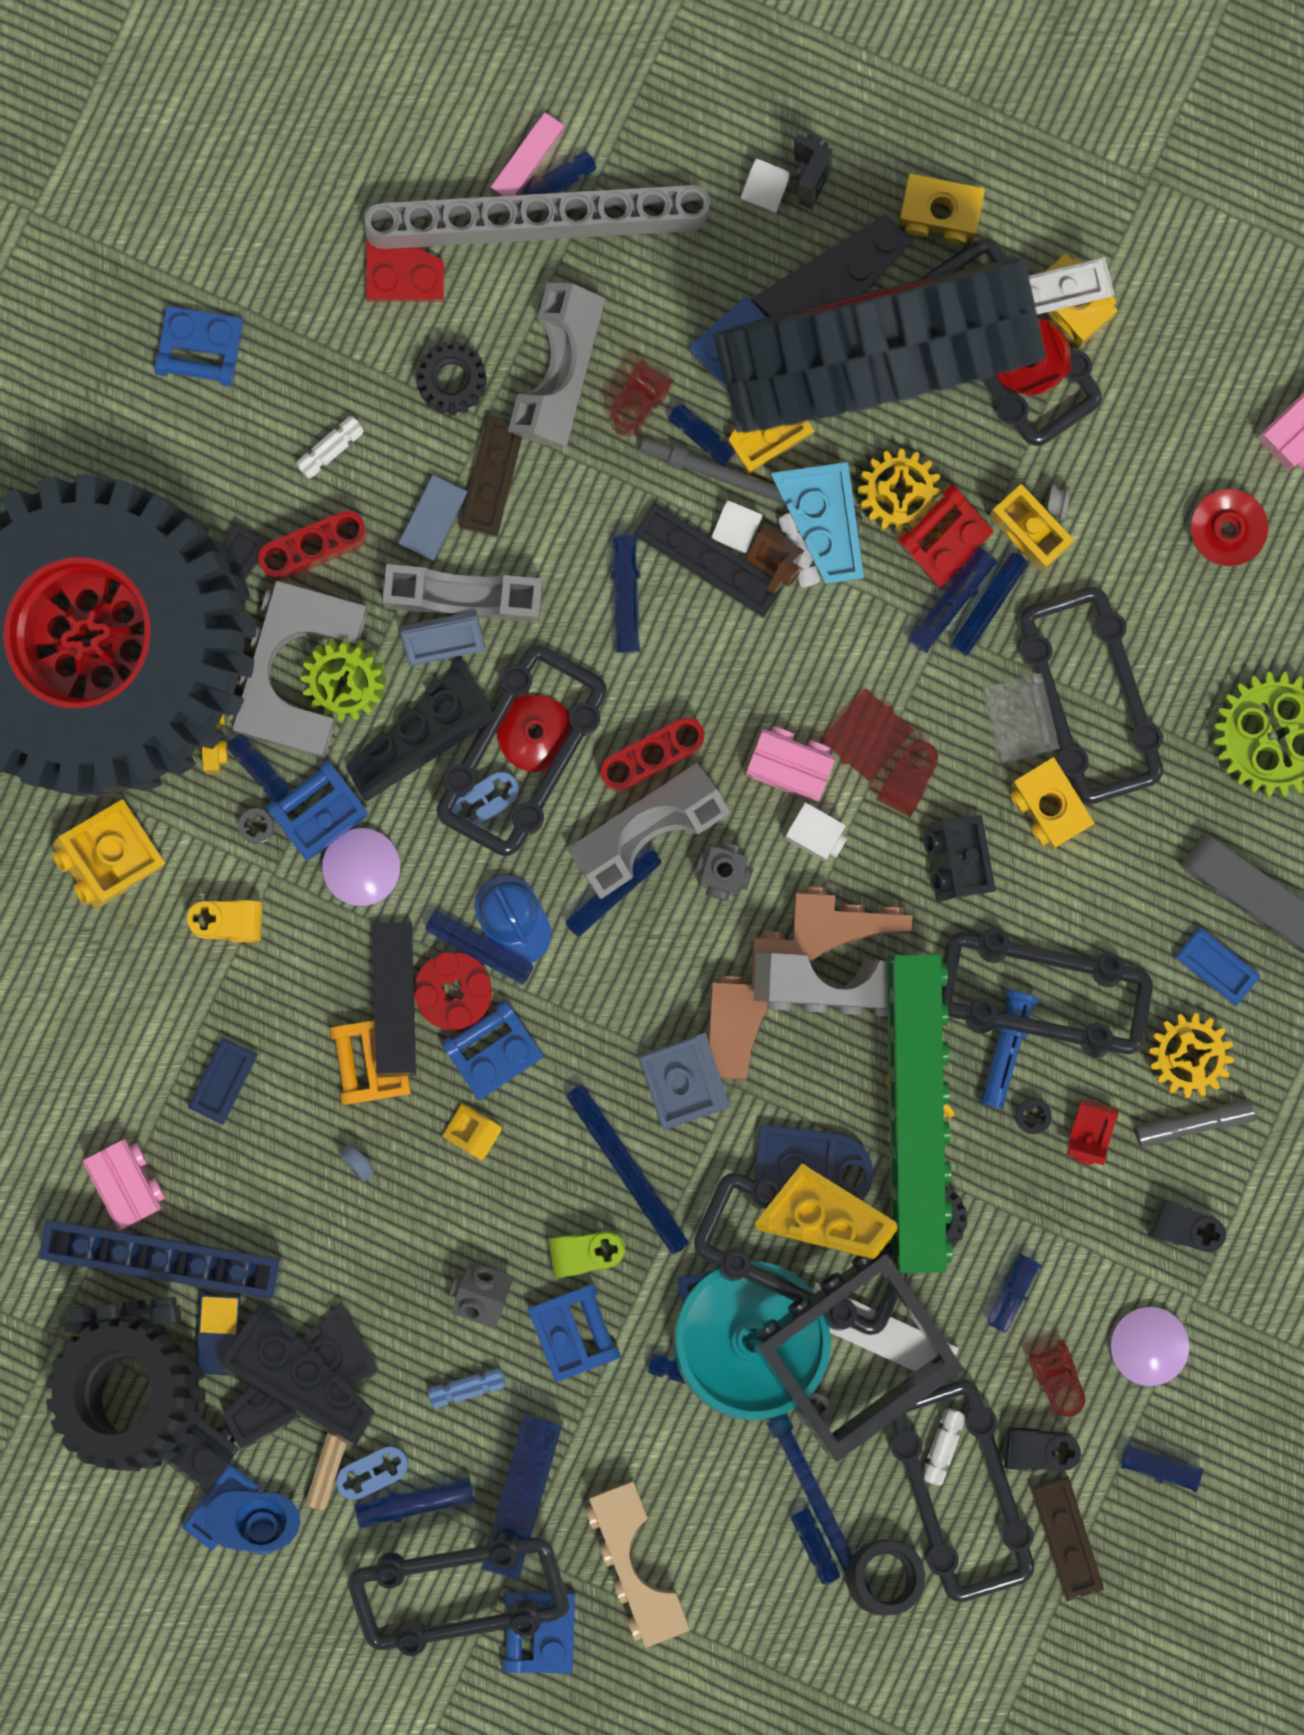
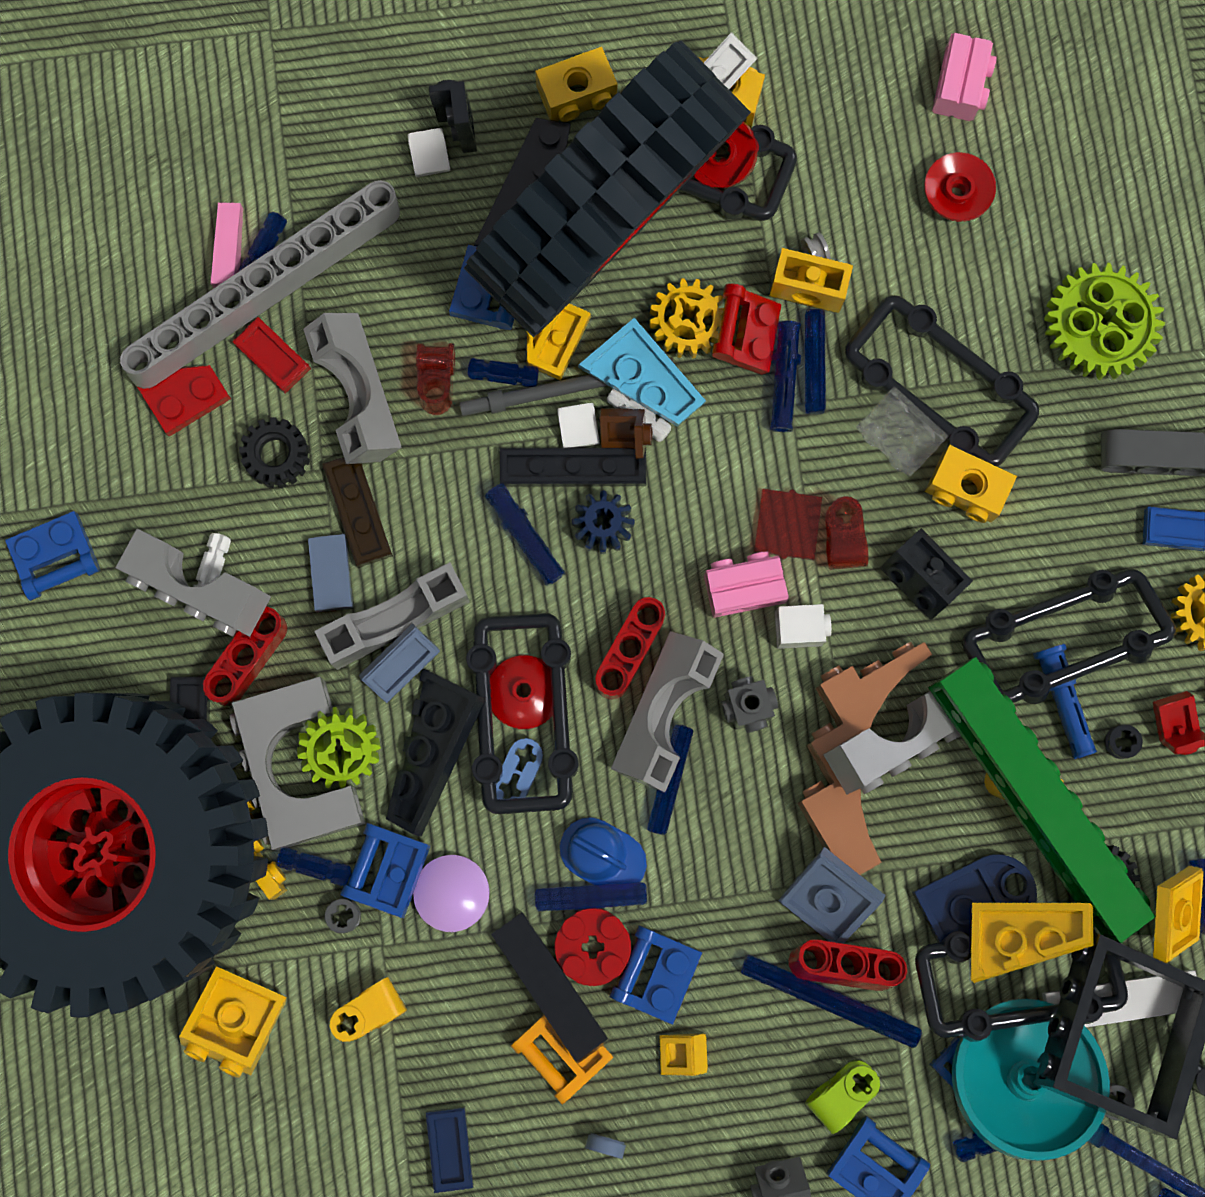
camera: 30 degrees left, 5 degrees down
(327, 487) = (227, 599): none -> light grey arch
(504, 285) = (271, 355): none -> red tile
(678, 1150) = (863, 958): none -> red beam
(712, 636) = (588, 522): none -> dark blue gear
(971, 1286) = (1178, 913): none -> yellow tile

